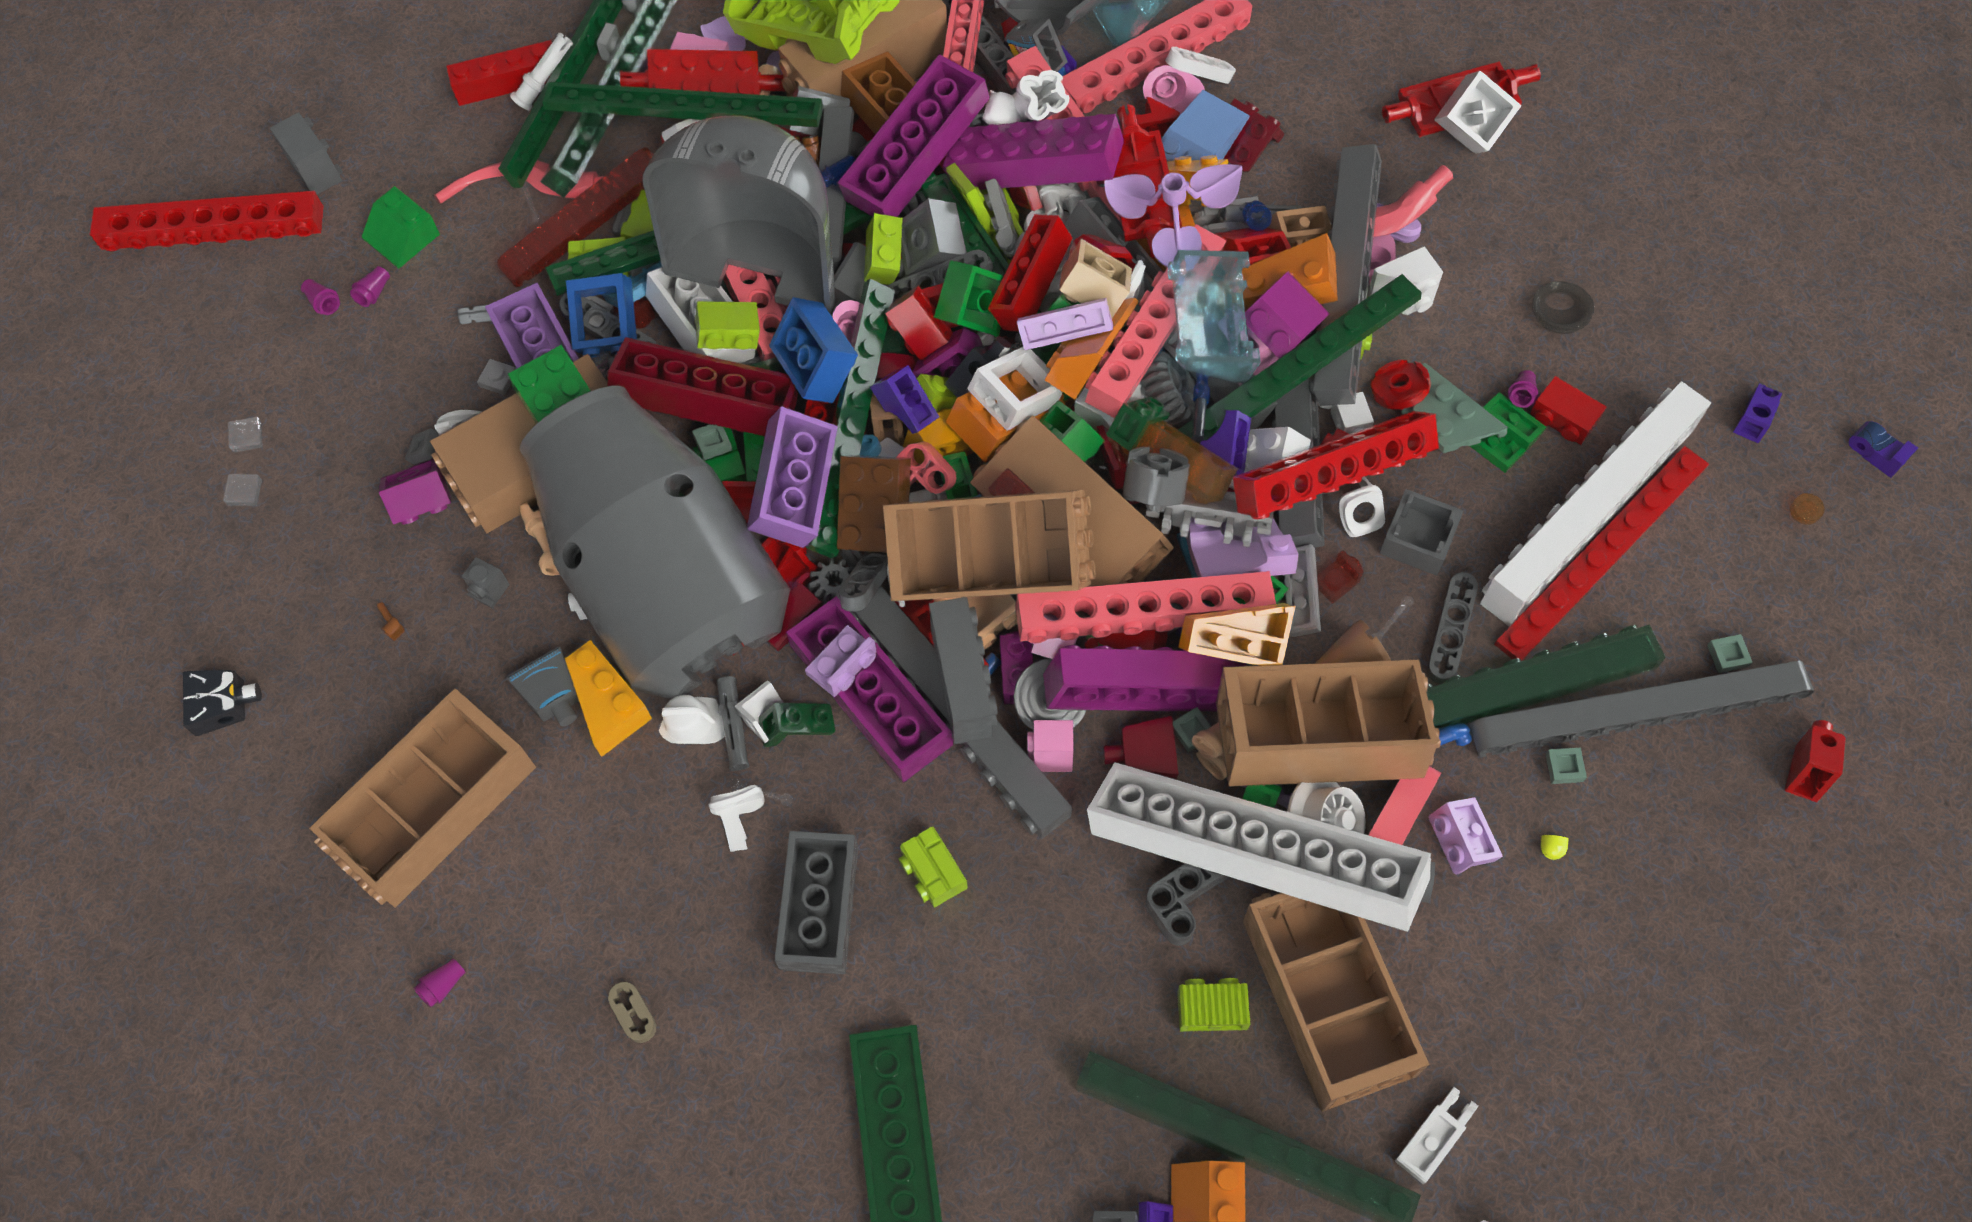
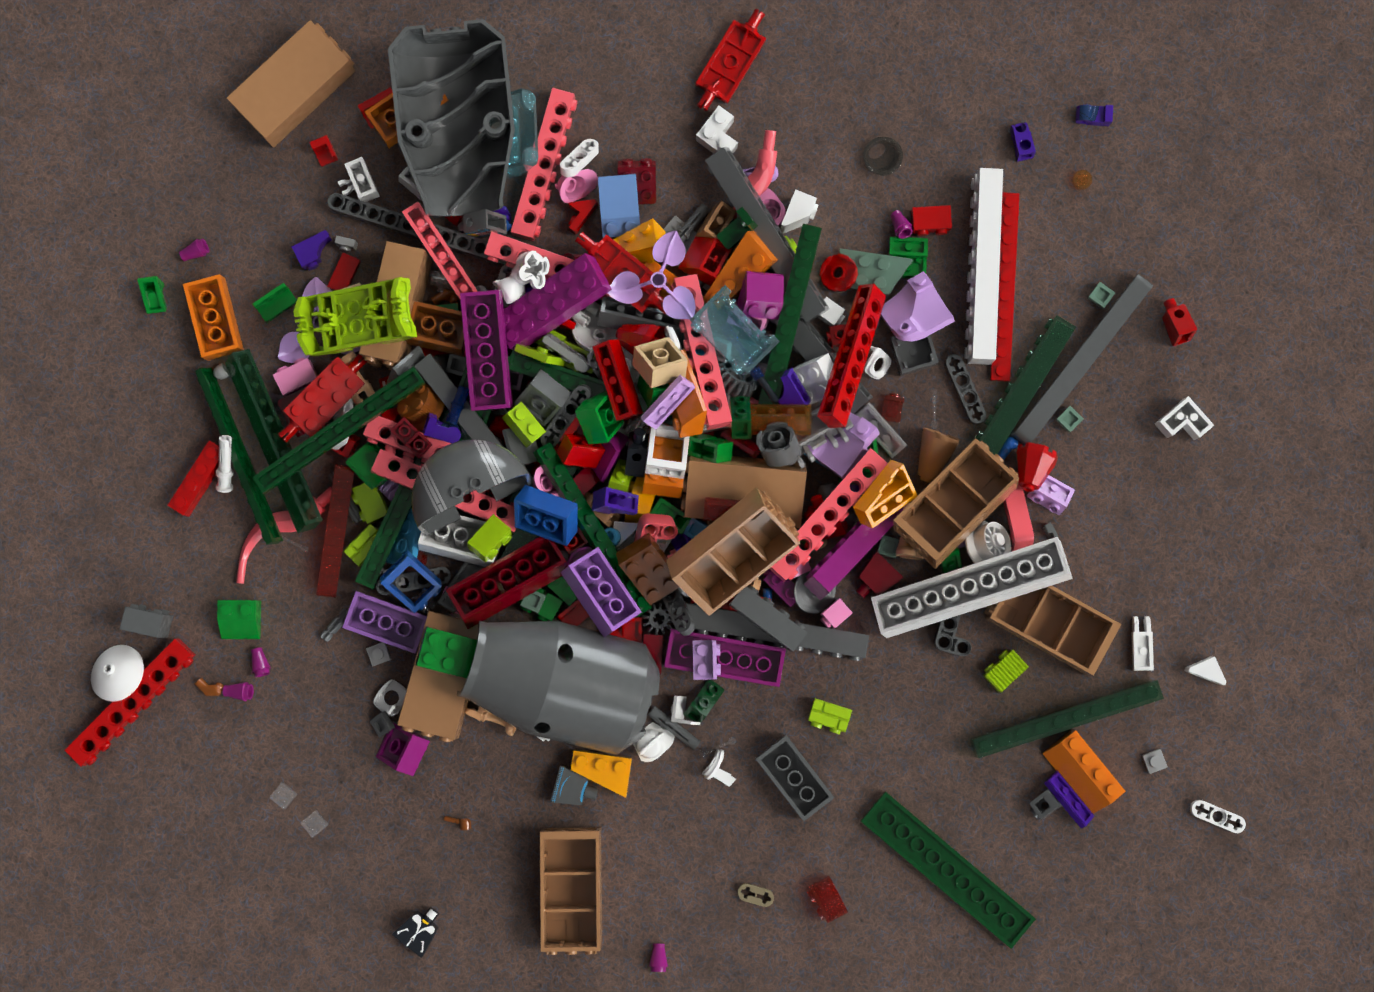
camera: 40 degrees left, 20 degrees up
(226, 180) = (123, 676): none -> white dish
(294, 272) = (209, 690): none -> dark orange arm
(485, 582) = (488, 765): dark grey brick -> none
(607, 40) = (237, 410): light grey plate -> none
(713, 1099) = (828, 899): none -> clear red brick
(1256, 224) = (694, 238): clear blue bush -> none
(1333, 227) = (737, 229): none -> dark green bracket
(1394, 144) = (713, 132): none -> white brick
(1466, 485) = (916, 310): none -> lavender slope
(1473, 772) = (1034, 465): none -> red cone
(1477, 112) = (752, 71): white brick -> none
(1554, 846) = (1093, 464): neon yellow hinge -> none
(1738, 880) = (1185, 415): none -> white brick

